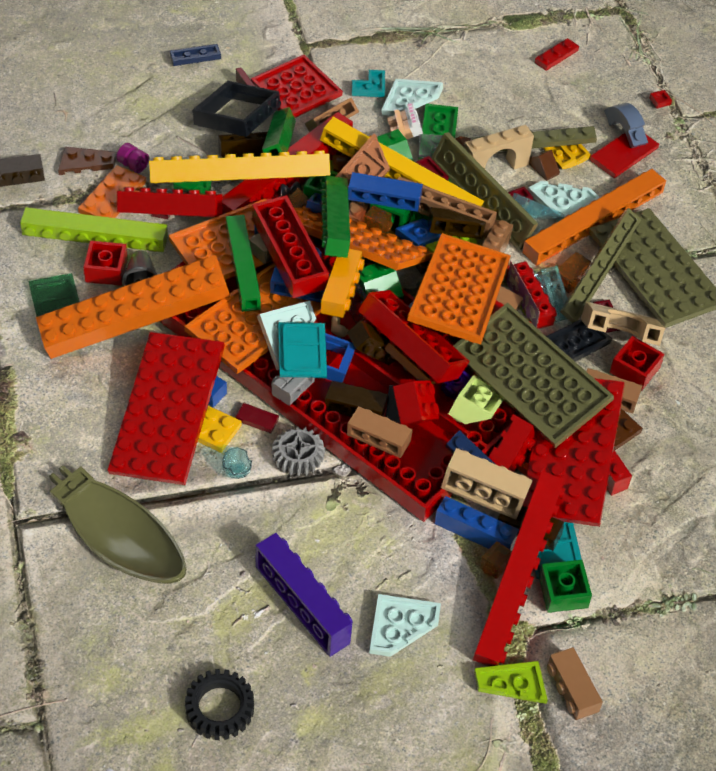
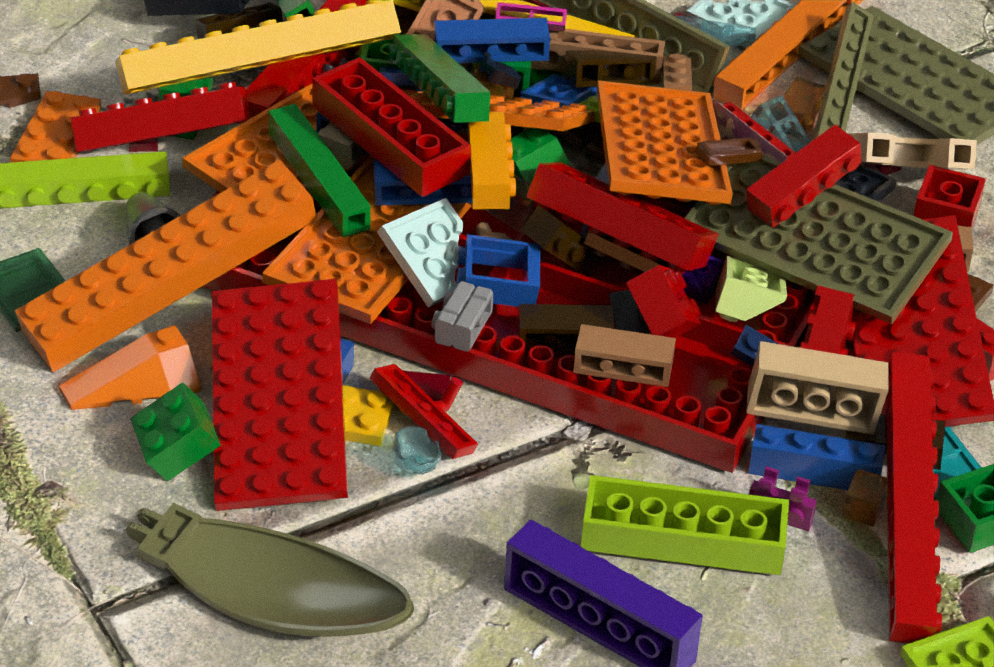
camera: 15 degrees left, 10 degrees down
(98, 419) = (175, 432): none -> green brick
(99, 371) = (135, 372): none -> orange wedge
(105, 263) = (90, 221): red brick -> none
(133, 157) = (68, 74): magenta wheel -> none
(252, 438) = (425, 411): none -> red plate
(286, 454) = (502, 416): light grey gear -> none
(302, 350) = (464, 265): teal piece -> none
(376, 553) = (685, 525): none -> lime brick
(382, 214) = (499, 72): none -> black piece
(400, 623) = (762, 612): light aqua plate -> none
(427, 186) = (552, 25): none -> dark pink piece
(445, 555) = (801, 507): none -> magenta plate
(496, 306) = (729, 151): none -> reddish brown tile
(534, 335) = (804, 176): none -> red brick

